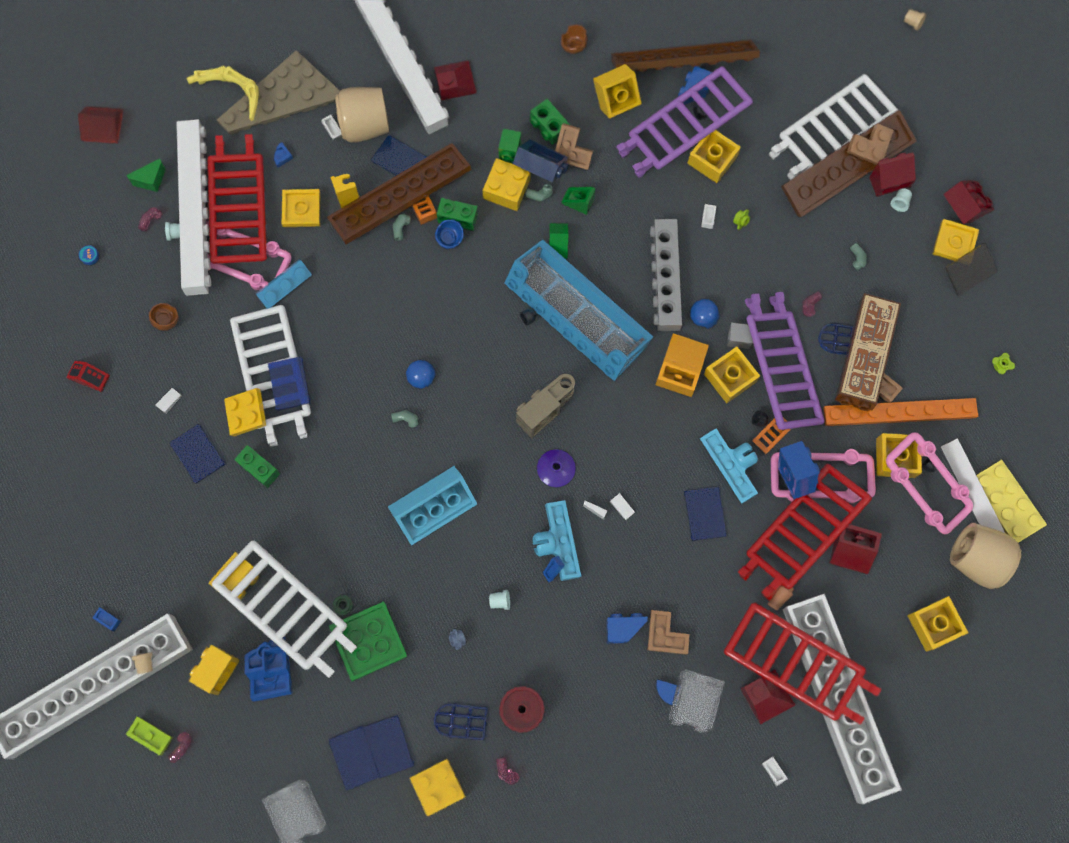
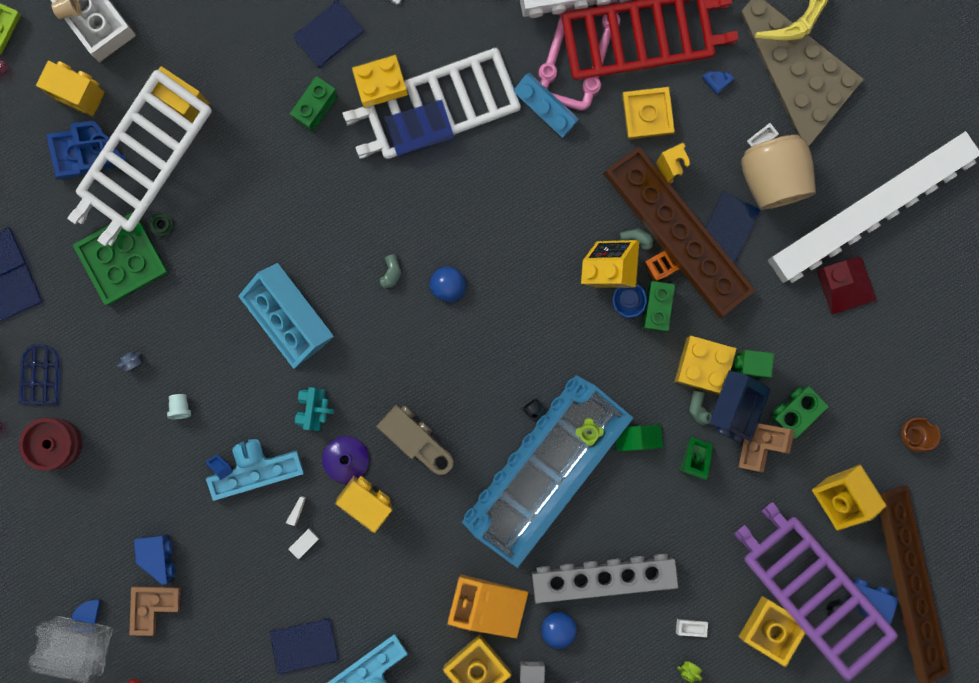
camera: 90 degrees right, 10 degrees up
(419, 244) = (611, 264): none -> yellow slope
(503, 487) = (315, 411): none -> teal hips
(556, 274) = (588, 438): none -> lime plate
(592, 449) = (364, 503): none -> yellow brick

